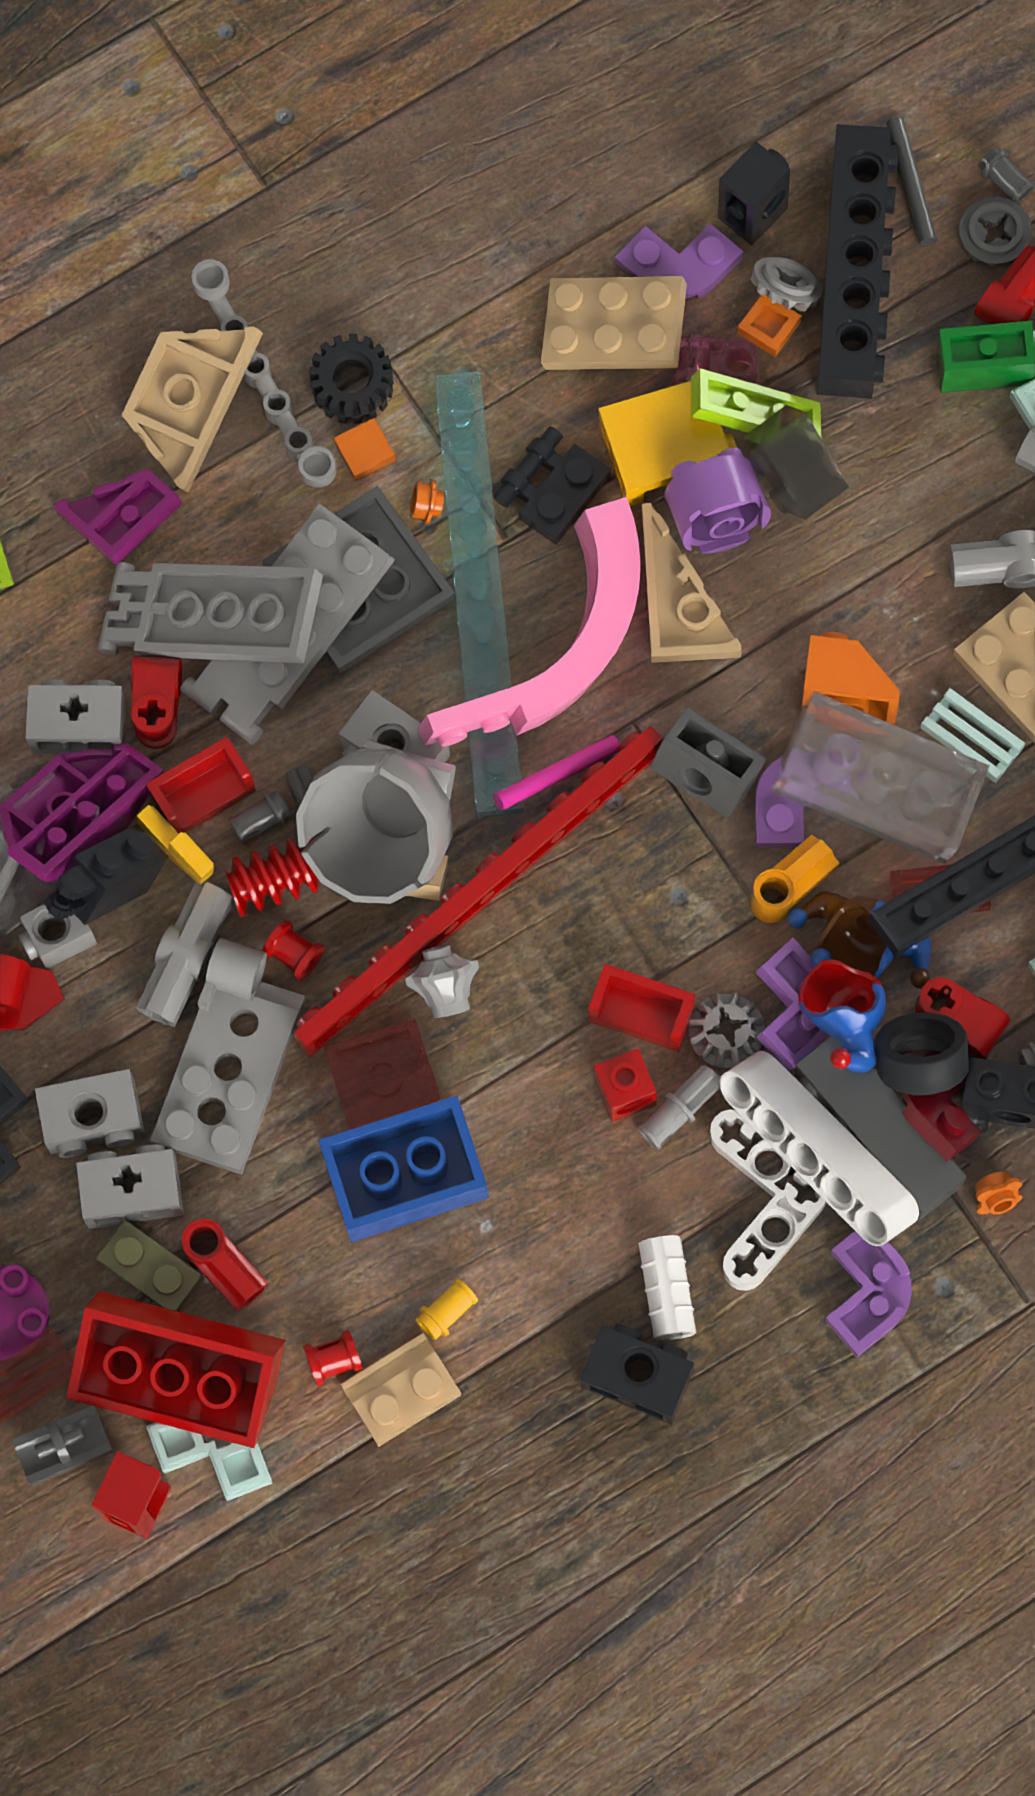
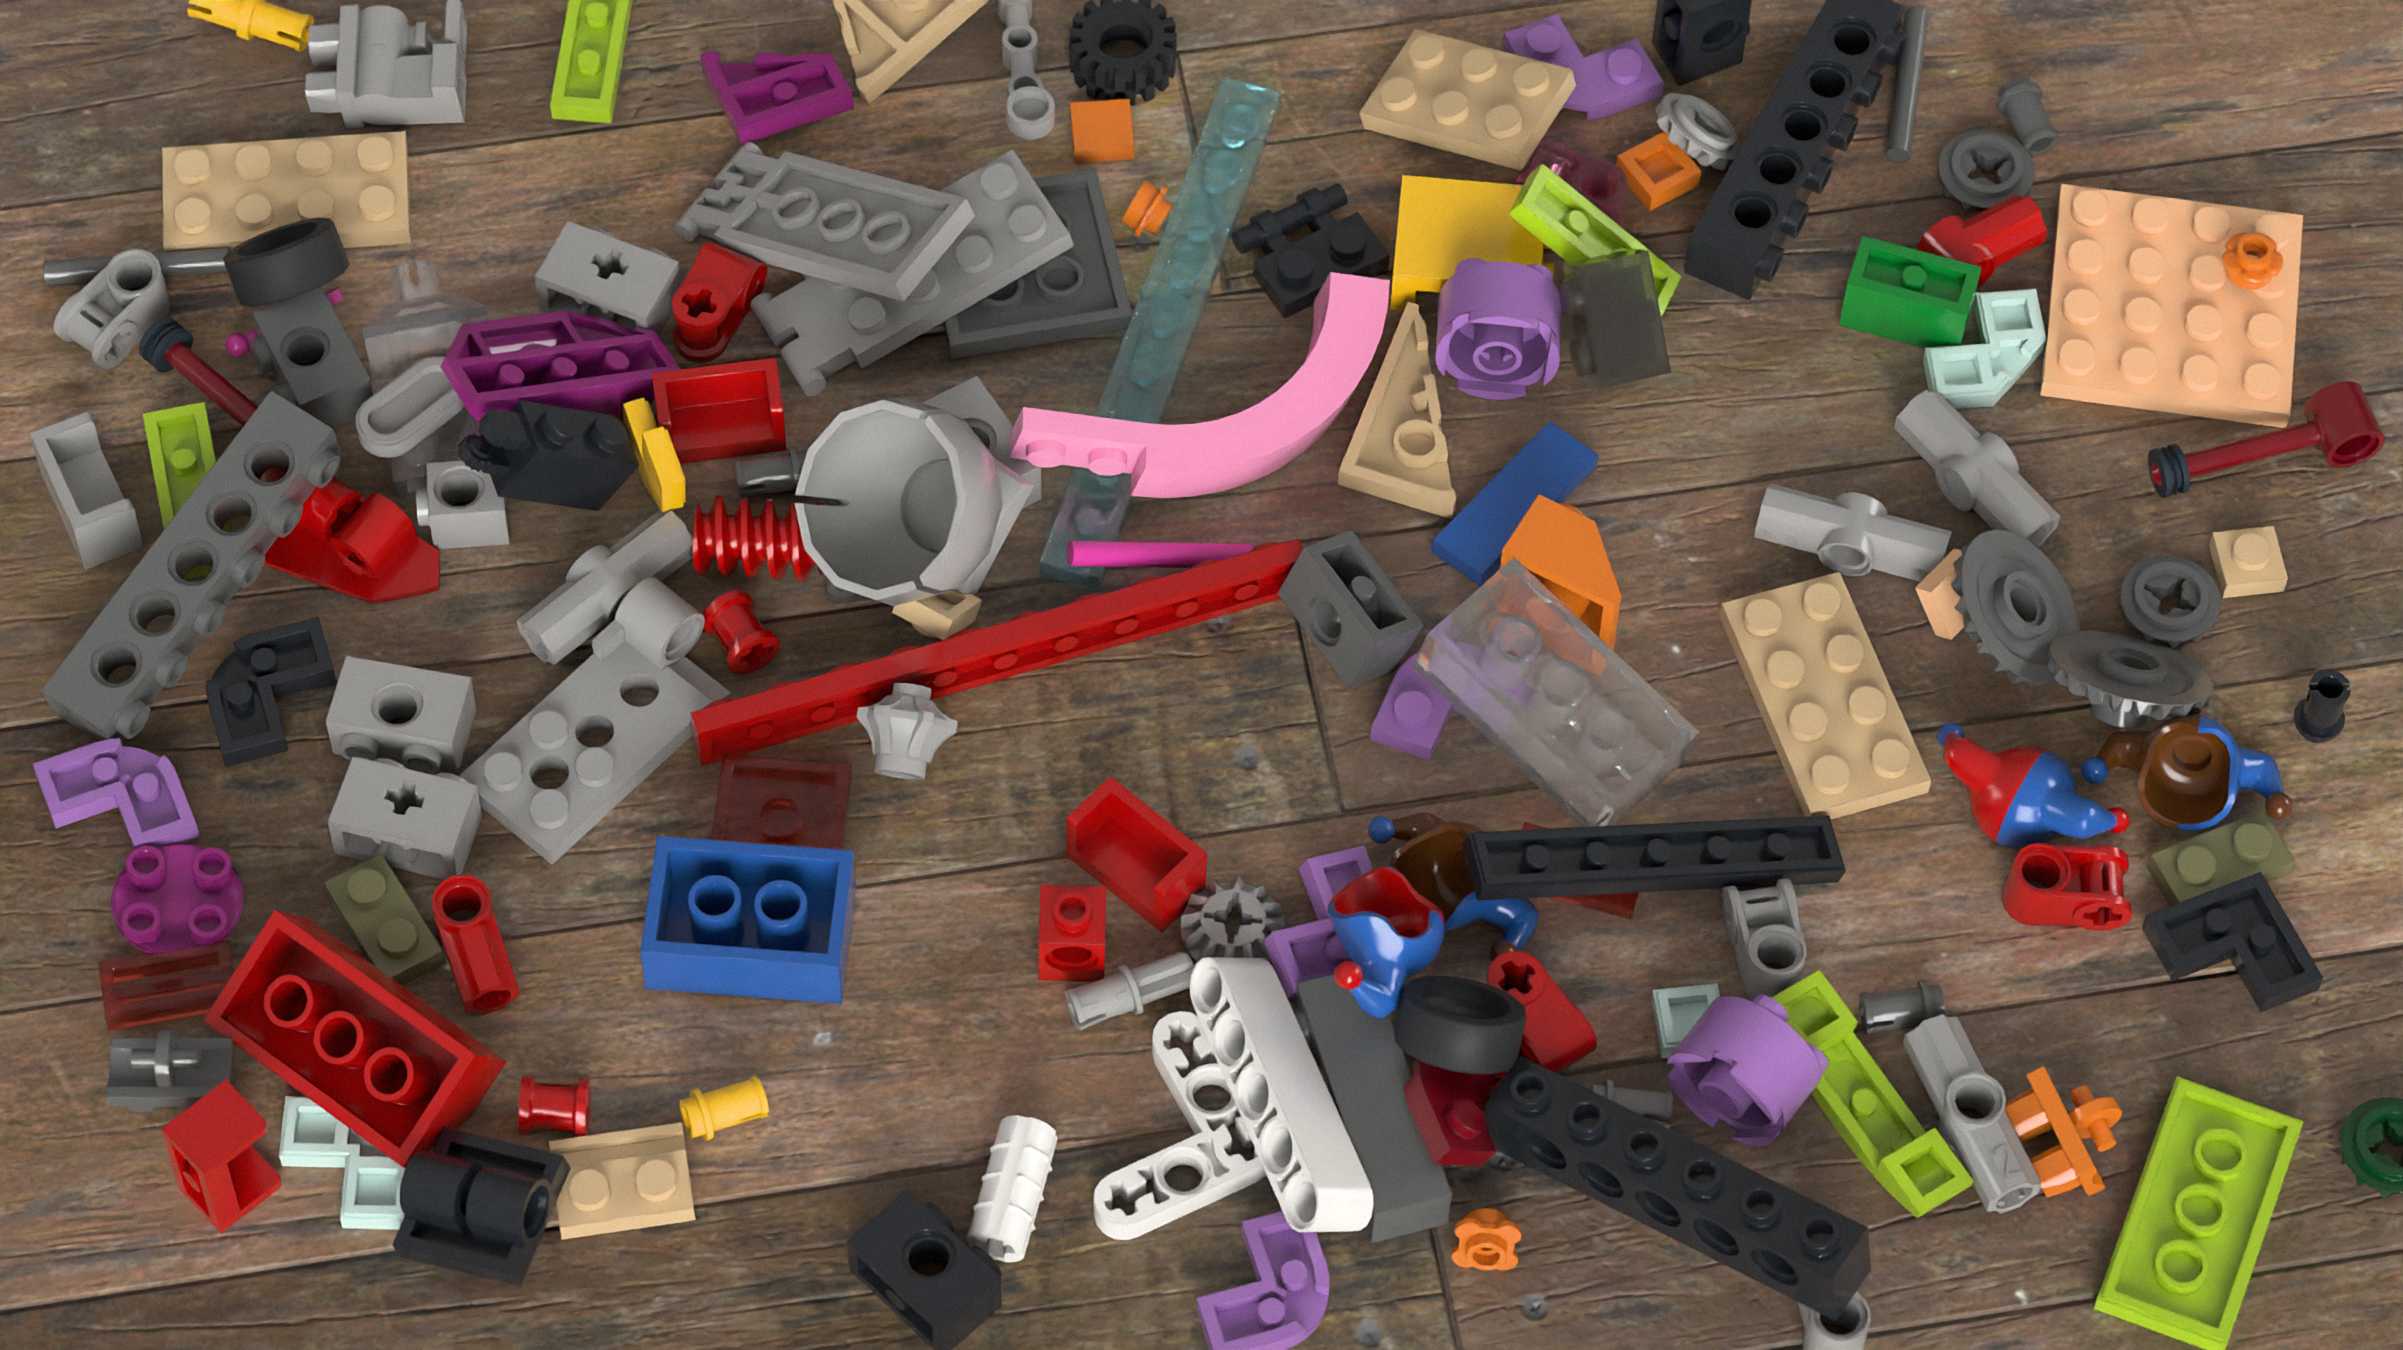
camera: 15 degrees right, 15 degrees down
(317, 1452) = (478, 1205): none -> black plate
(779, 627) = (1547, 466): none -> blue tile
(794, 878) = (1396, 783): light orange piece -> none
(983, 721) = (1720, 698): light aqua tile -> none

